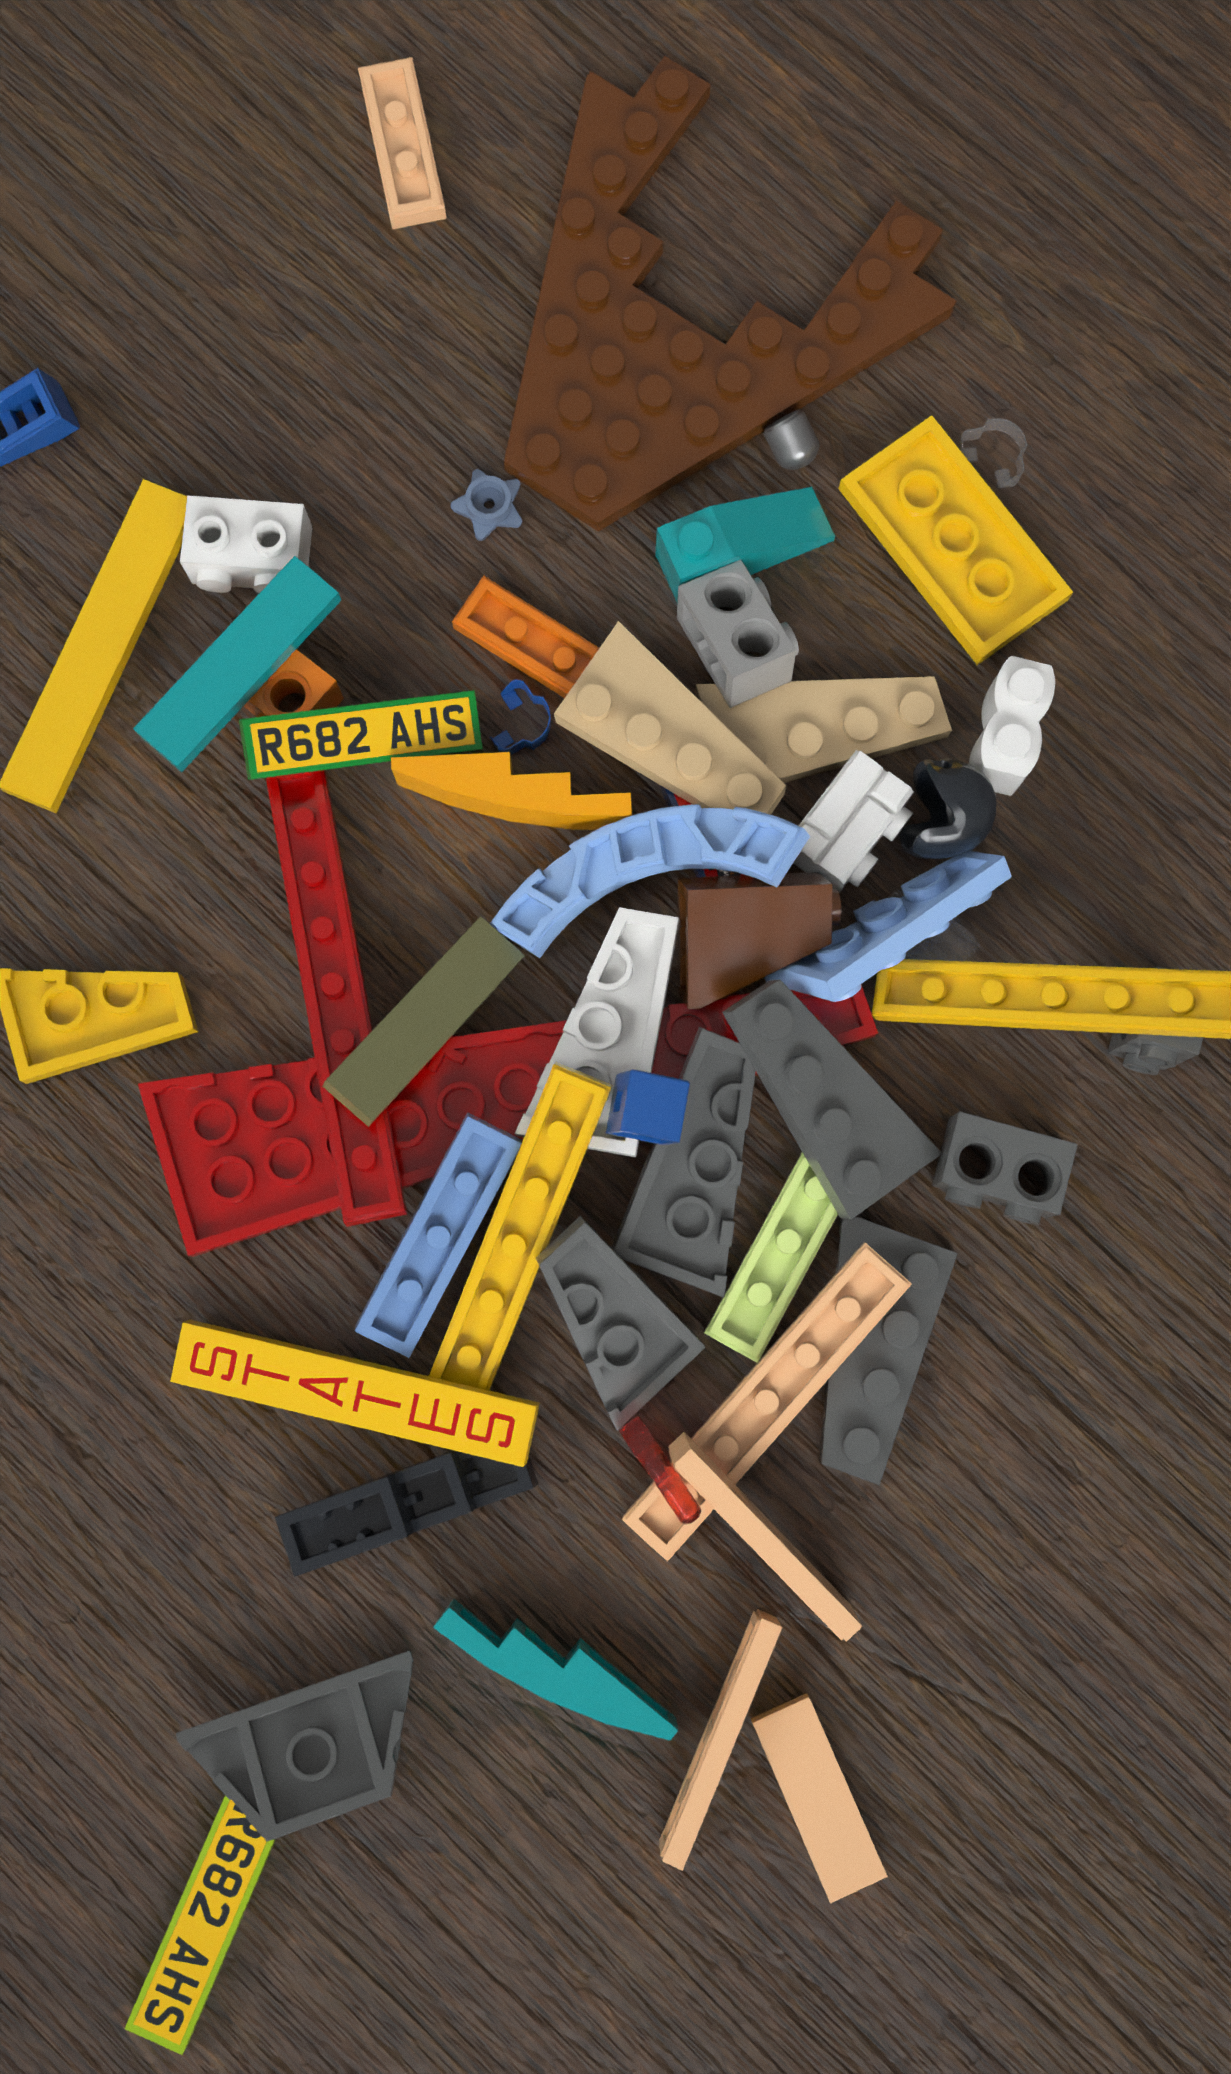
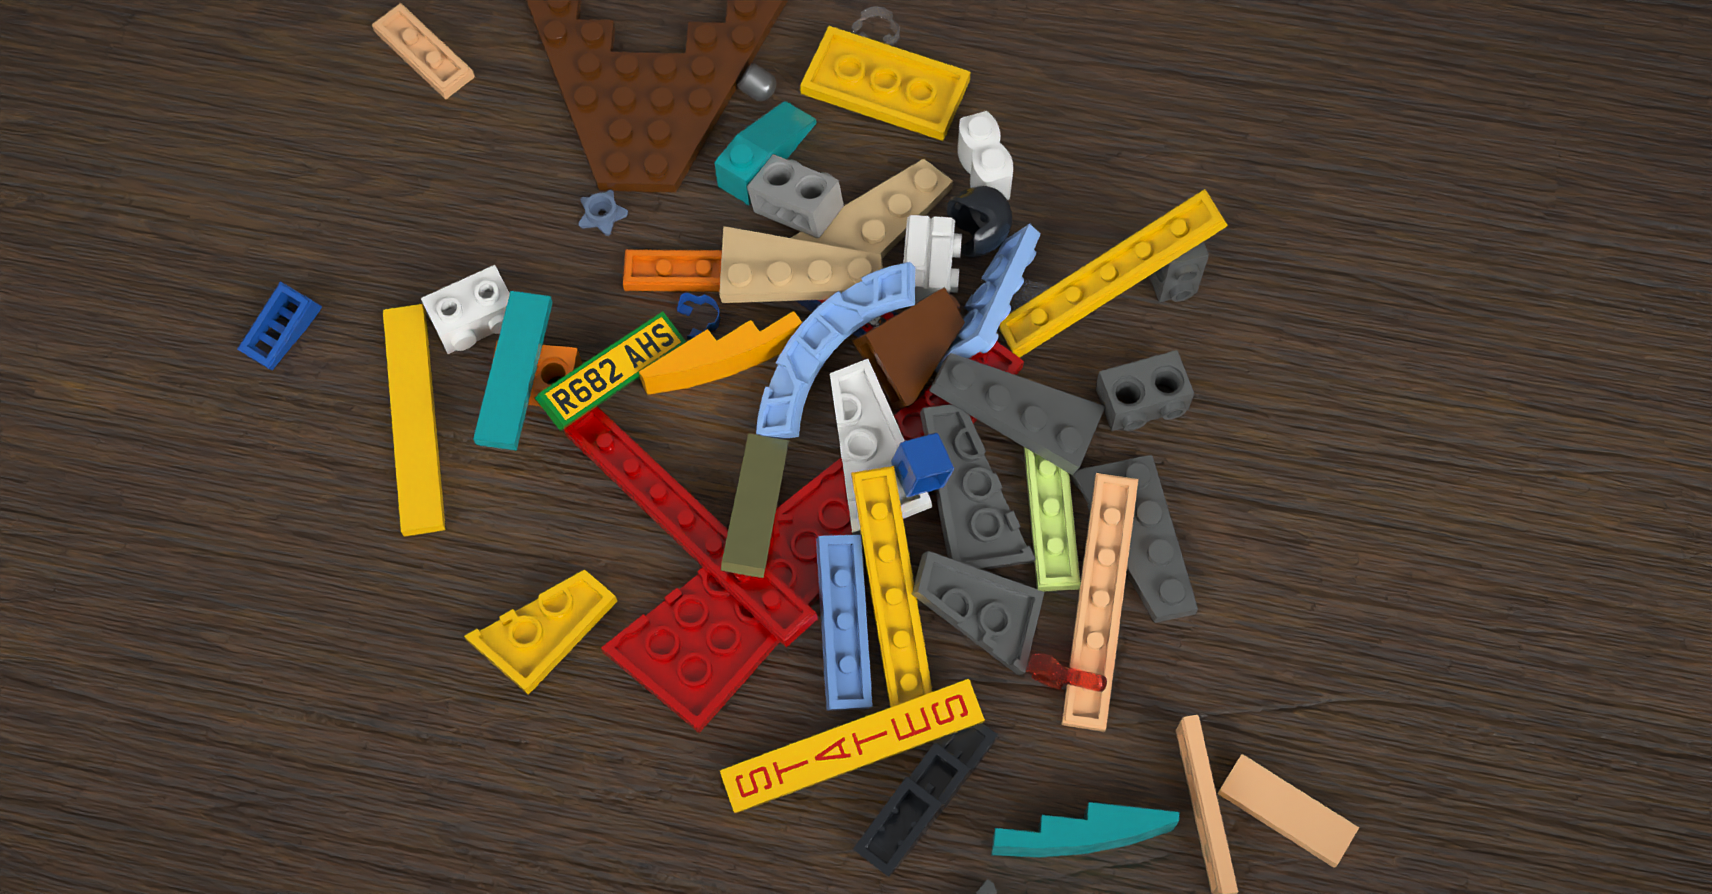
camera: 30 degrees left, 15 degrees down
(763, 1537) = (1152, 671): light nougat tile -> none

